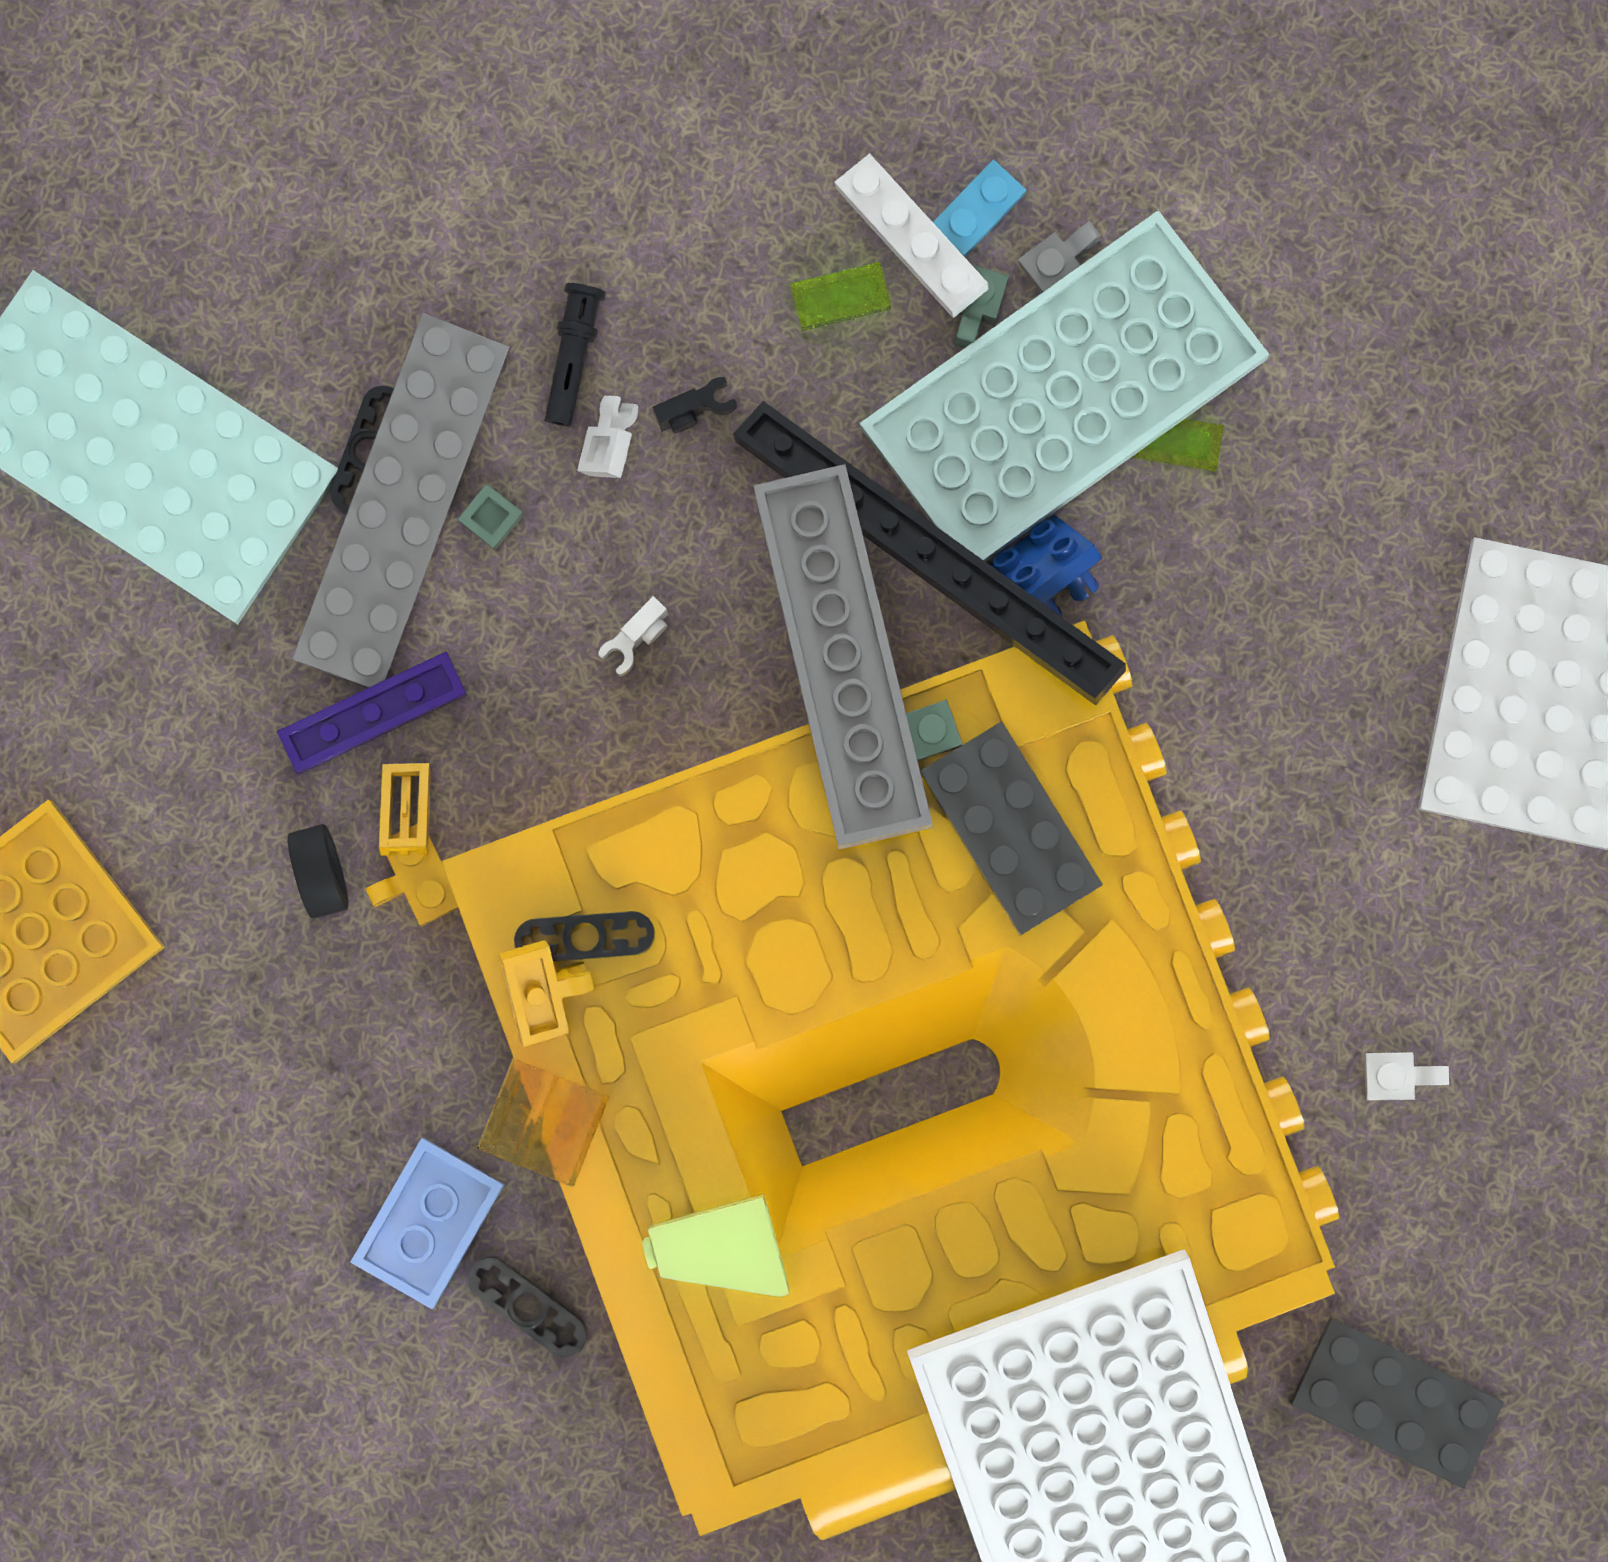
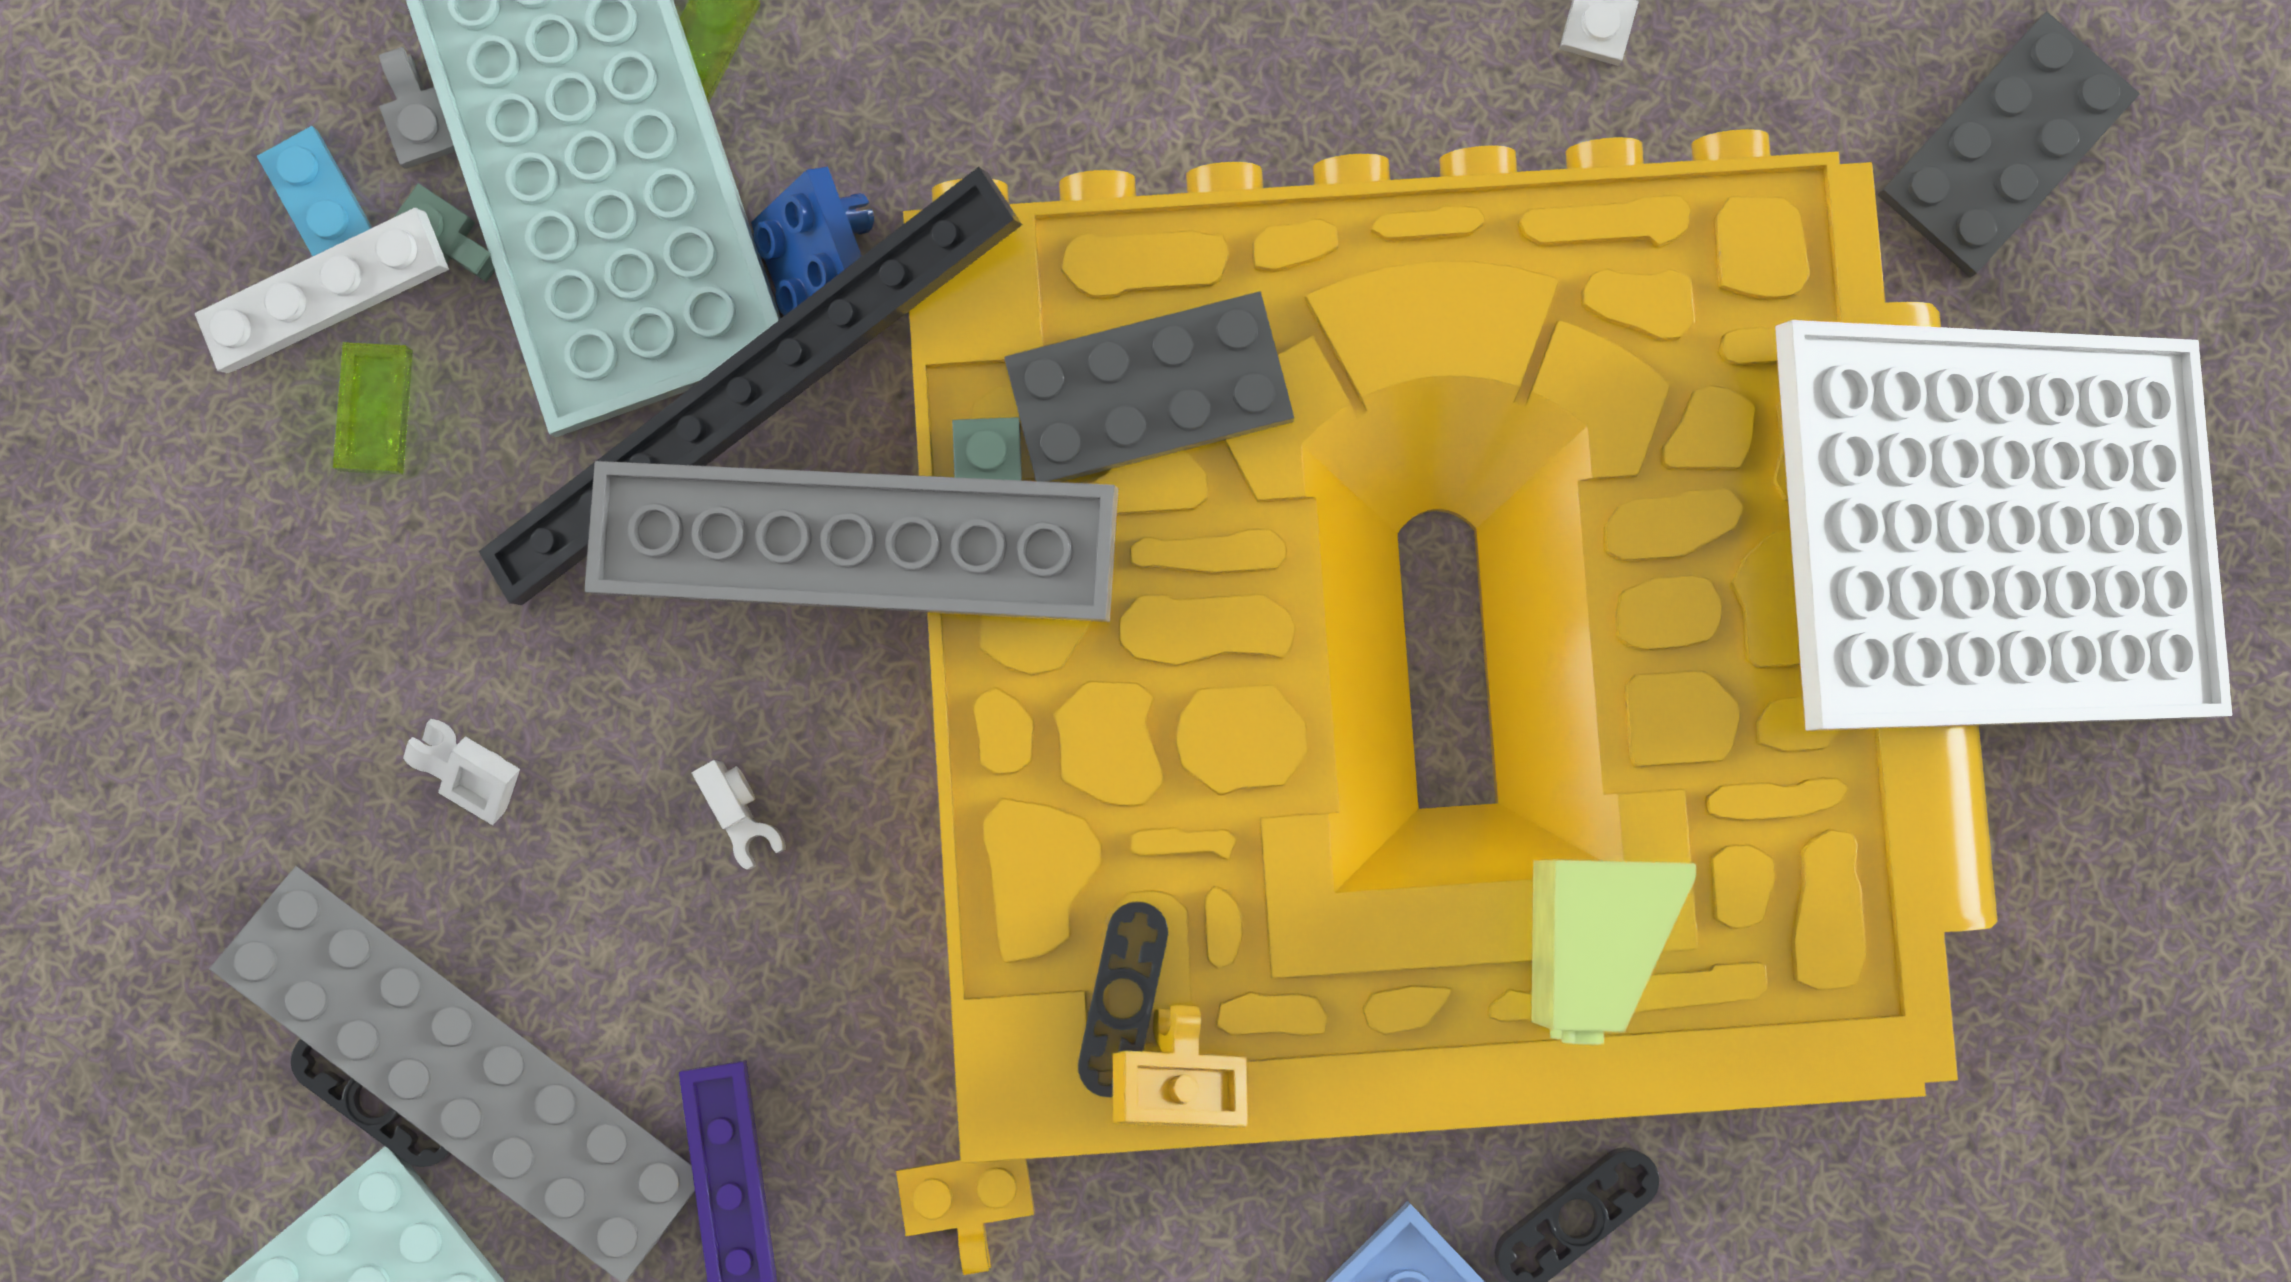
camera: 80 degrees left, 0 degrees up
(404, 842) = (919, 1204): yellow tile -> none
(490, 517) = (517, 958): sand green plate -> none
(543, 1122) = (1354, 1129): clear yellow slope -> none
(572, 352) = (313, 774): black pin -> none
(682, 411) = (455, 659): black plate -> none

